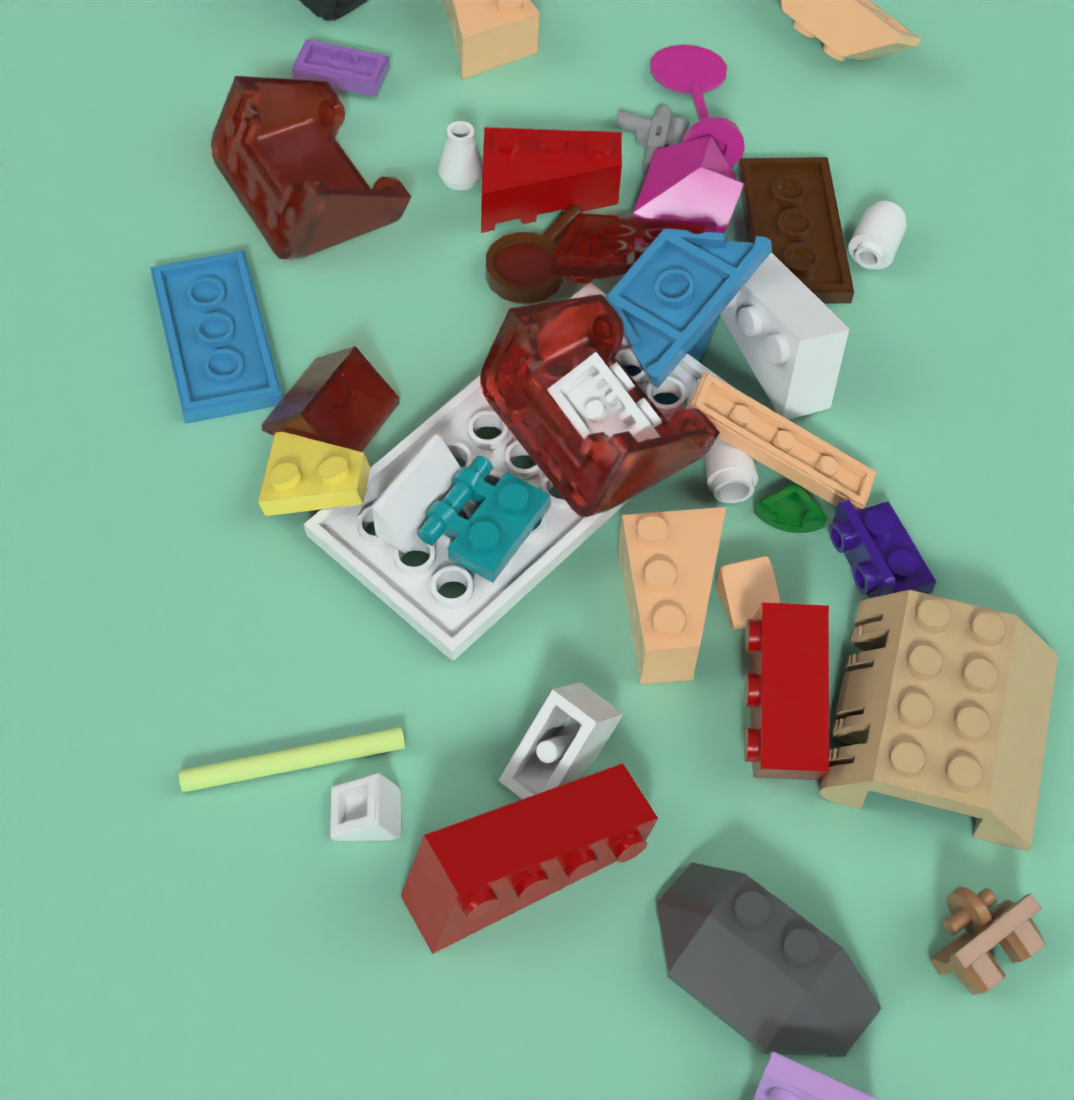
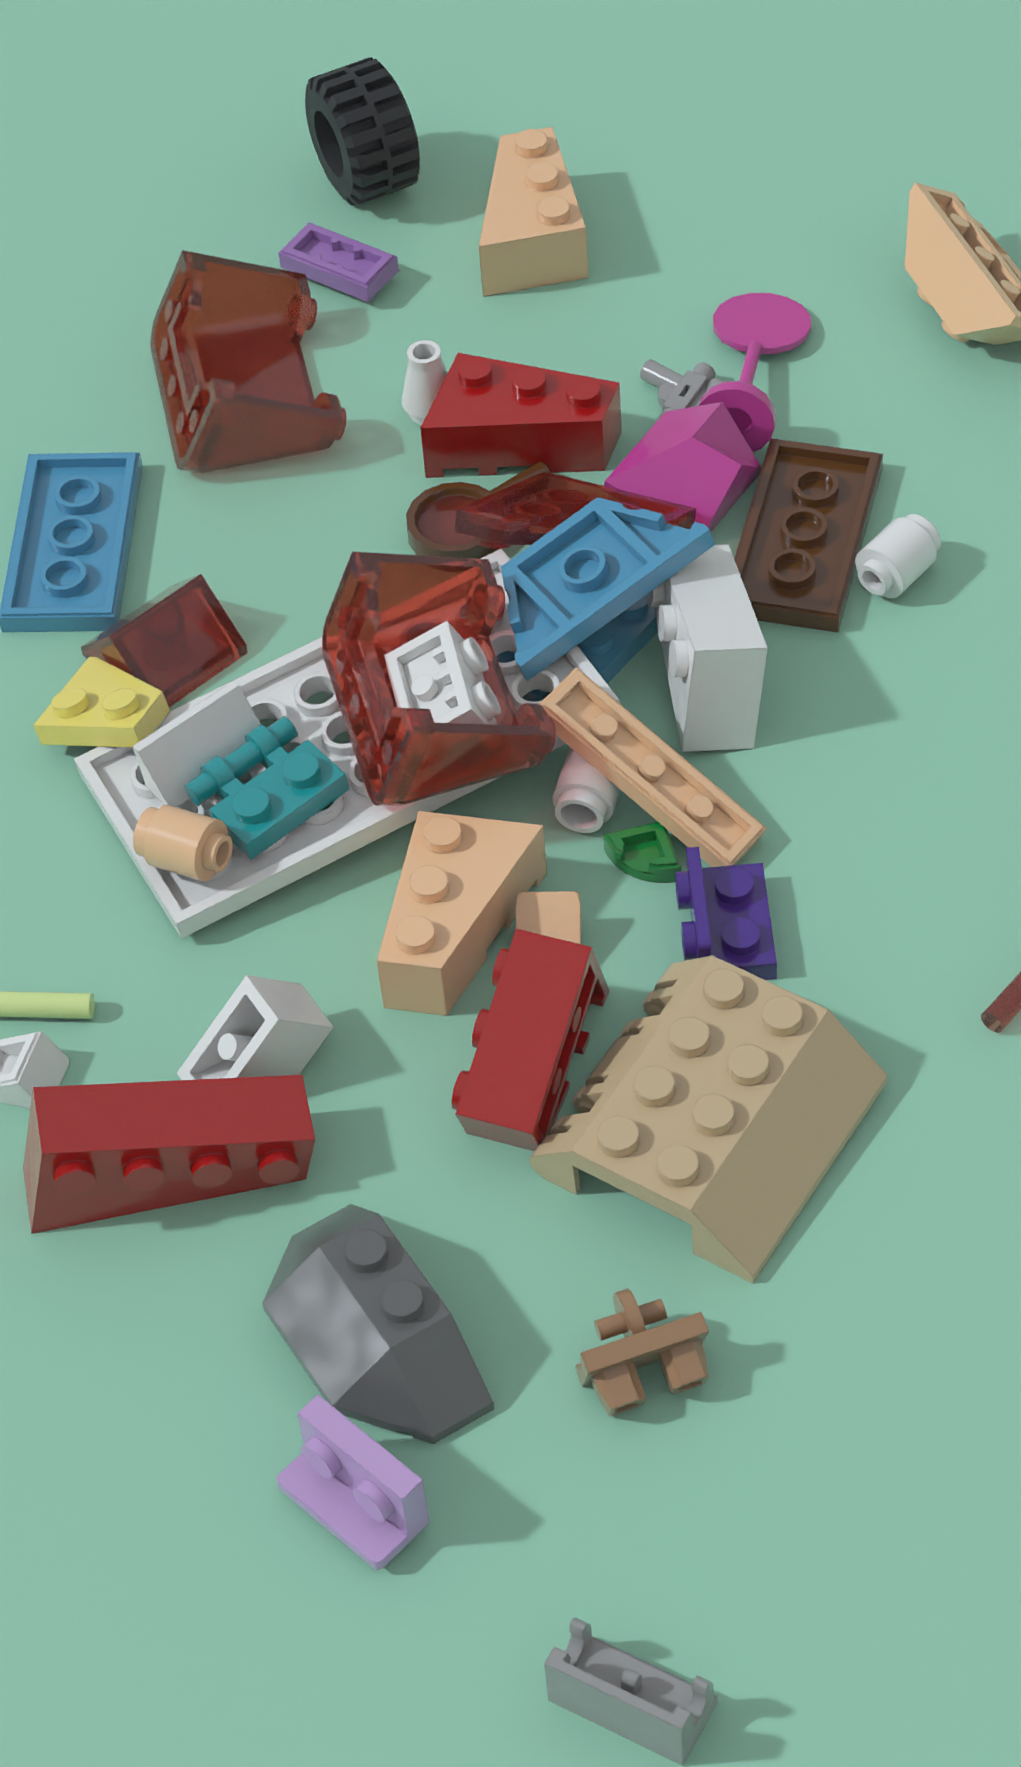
camera: 25 degrees right, 5 degrees down
(438, 580) = (182, 842): none -> light nougat brick

